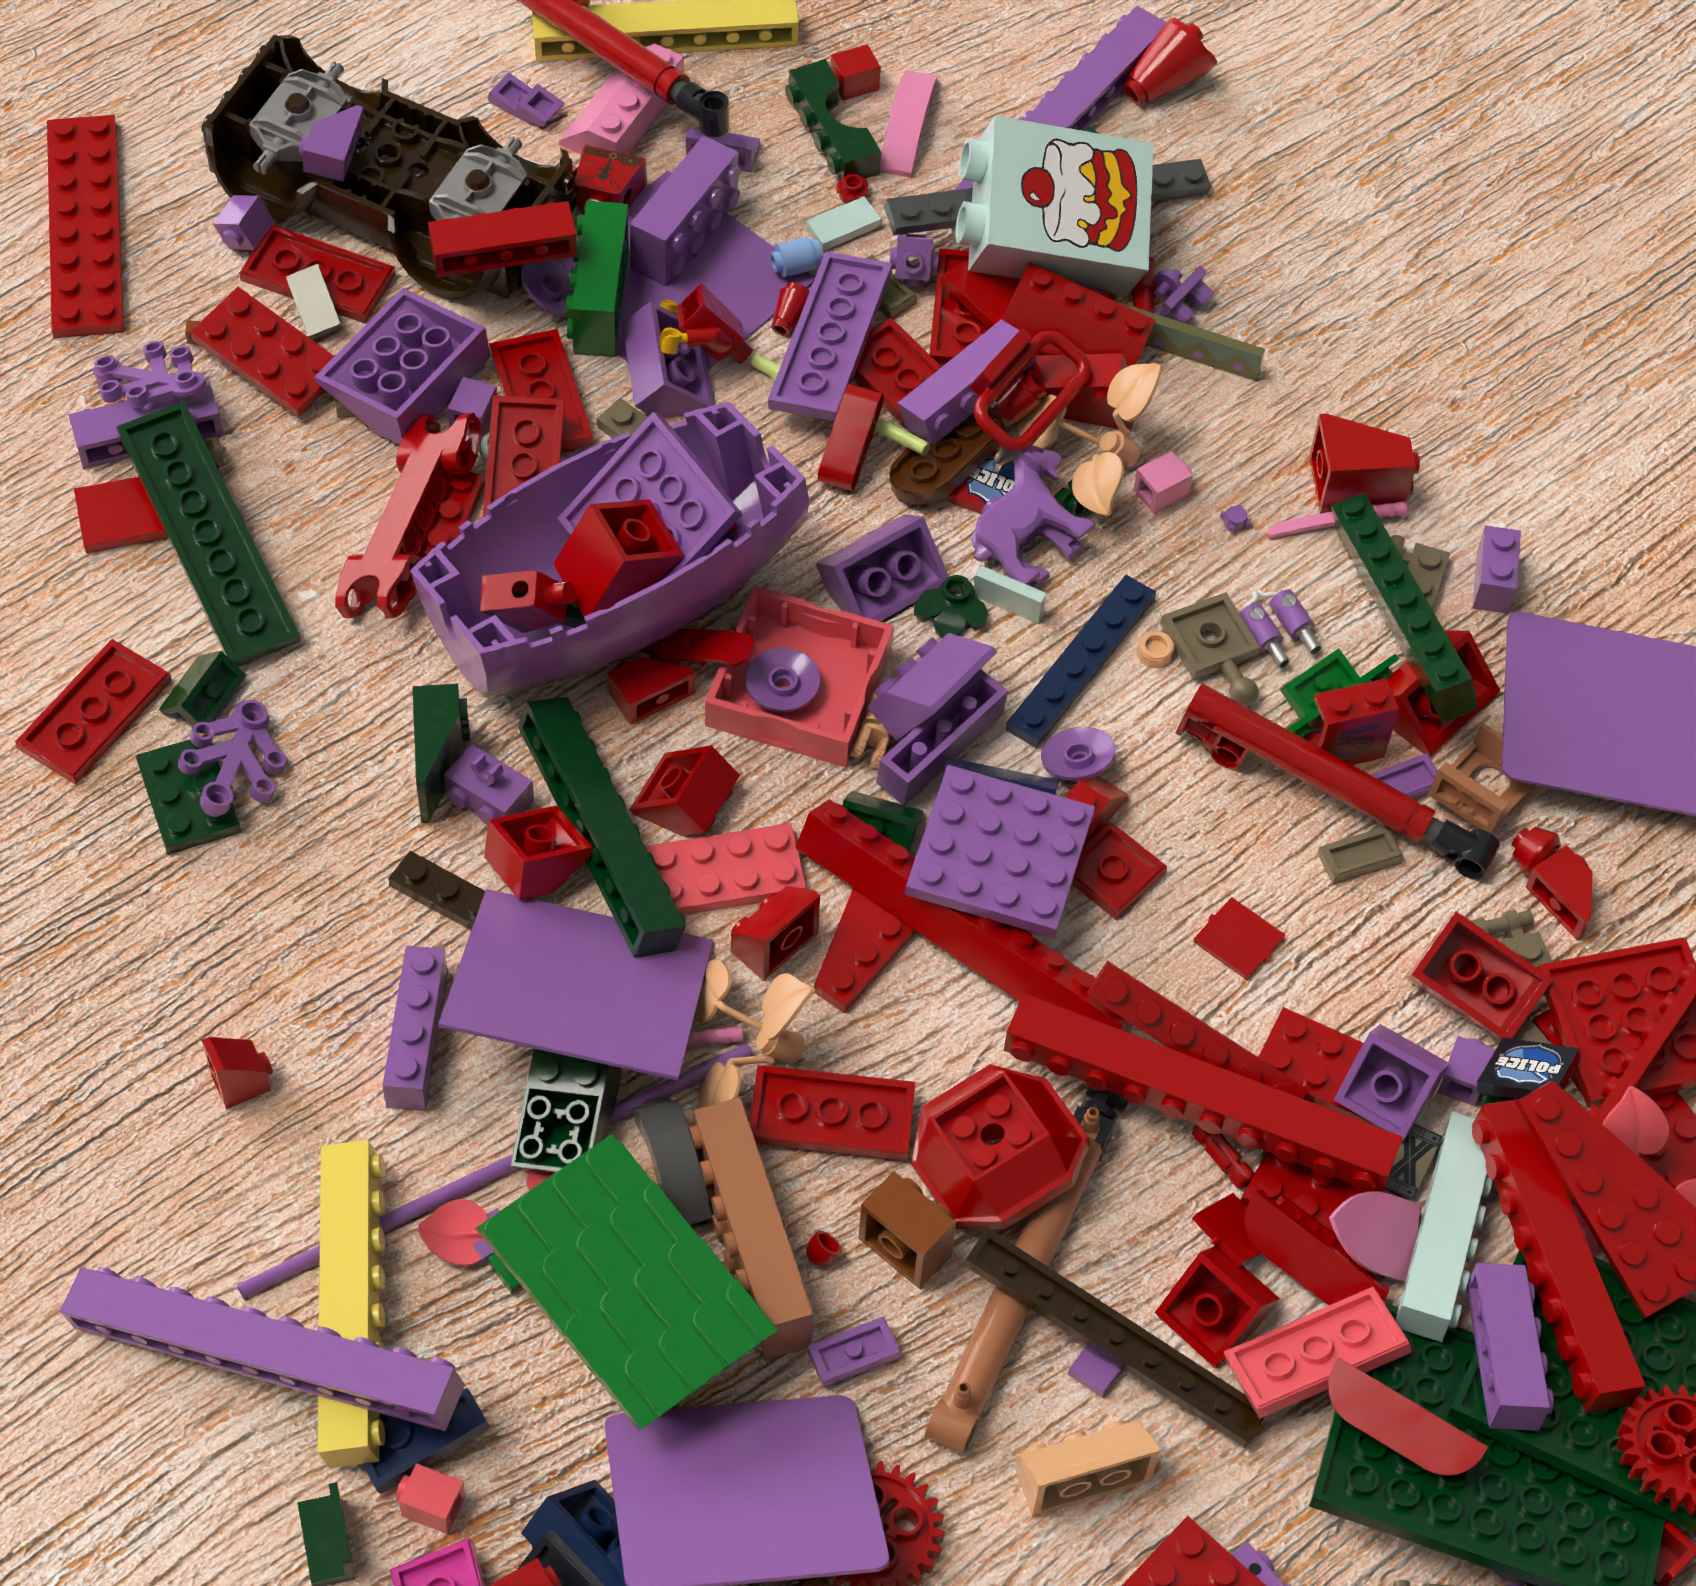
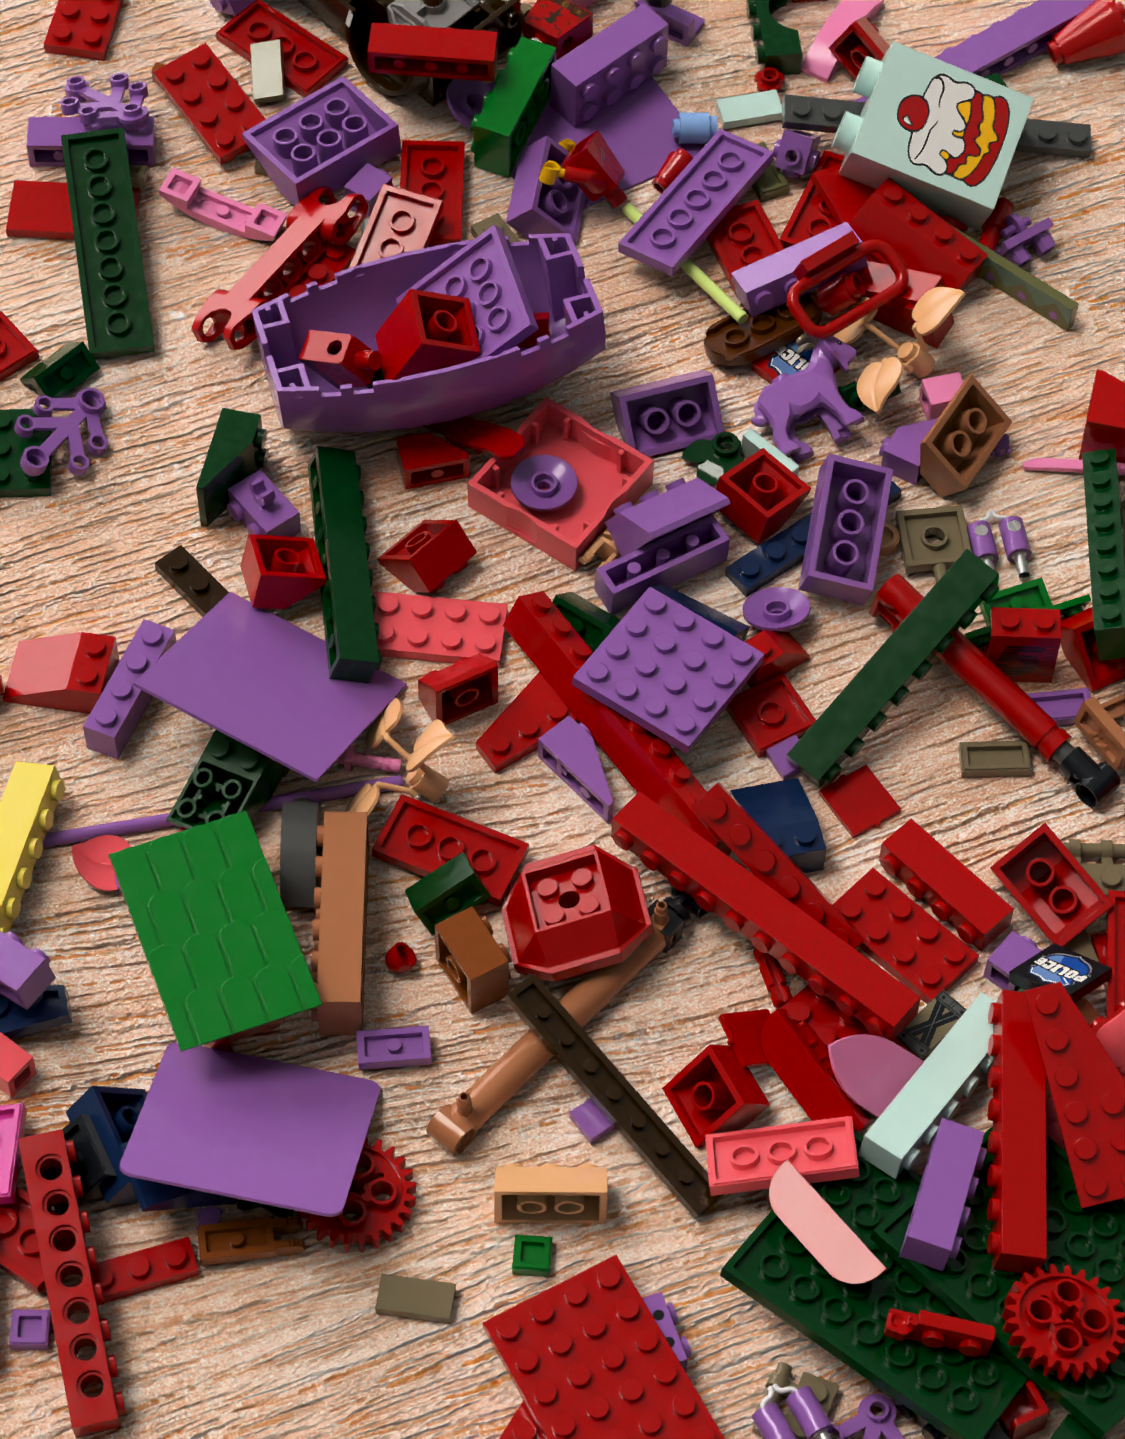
camera: 20 degrees right, 0 degrees up
(317, 468) = (219, 211): none -> bright pink slope
(330, 1029) = (62, 671): none -> red slope
(849, 1161) = (447, 892): none -> dark green panel
(850, 437) = (680, 292): red beam -> none
(931, 976) = (573, 757): none -> medium lavender slope
(941, 136) = (856, 43): none -> red slope
(1021, 633) = (761, 495): none -> red slope
(1088, 1541) = (532, 1255): none -> green tile
(1123, 649) = (846, 529): none -> medium lavender brick
(1149, 911) = (778, 757): none -> medium lavender tile
(1151, 545) = (903, 450): none -> medium lavender slope
(1179, 976) = (788, 819): none -> dark blue slope
(1206, 523) = (962, 439): none -> nougat slope
(1233, 788) = (893, 668): none -> dark green brick
(1361, 1000) = (945, 885): none -> red brick
(1391, 1081) = (937, 951): medium lavender slope -> none
(1563, 1498) = (940, 1331): none -> red hinge

